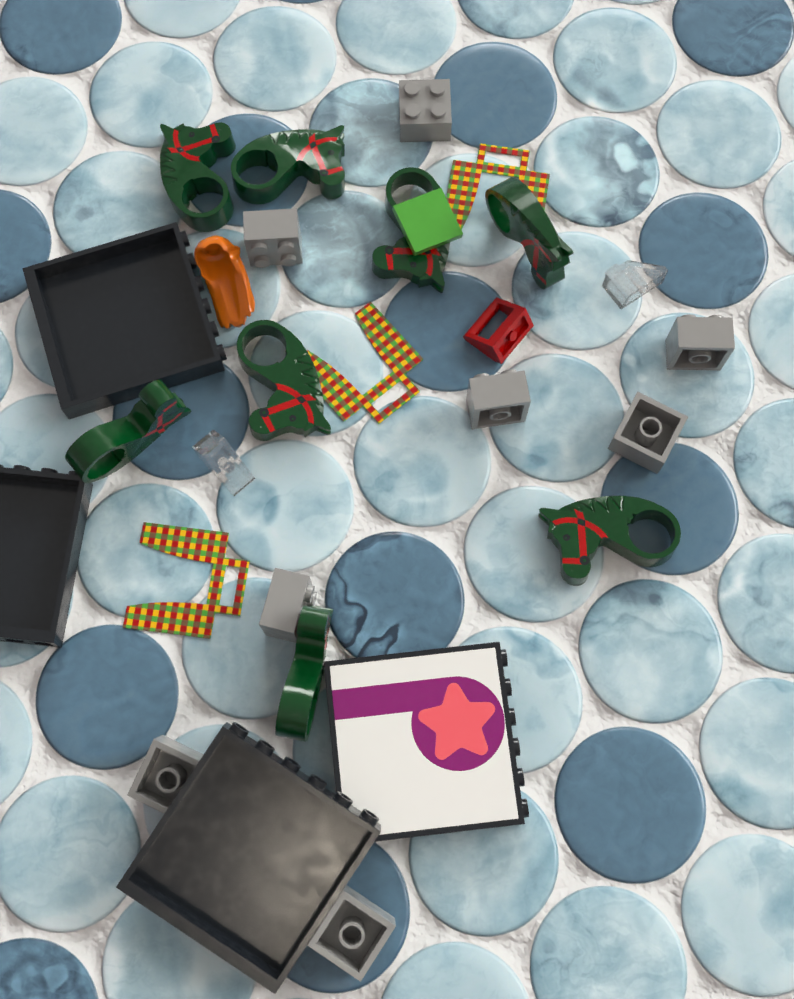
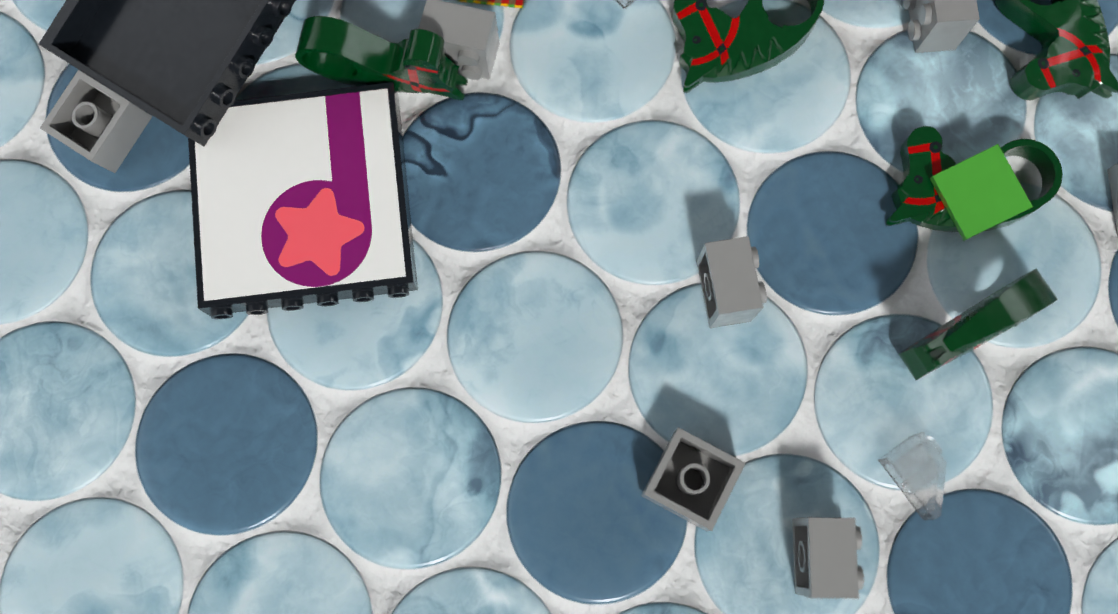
camera: 90 degrees right, 5 degrees up
(394, 351) = (795, 168): piece -> none
(466, 178) = (1056, 254): piece -> none
(507, 335) = (828, 303): red tile -> none
(604, 521) = (569, 401): dark green animal -> none

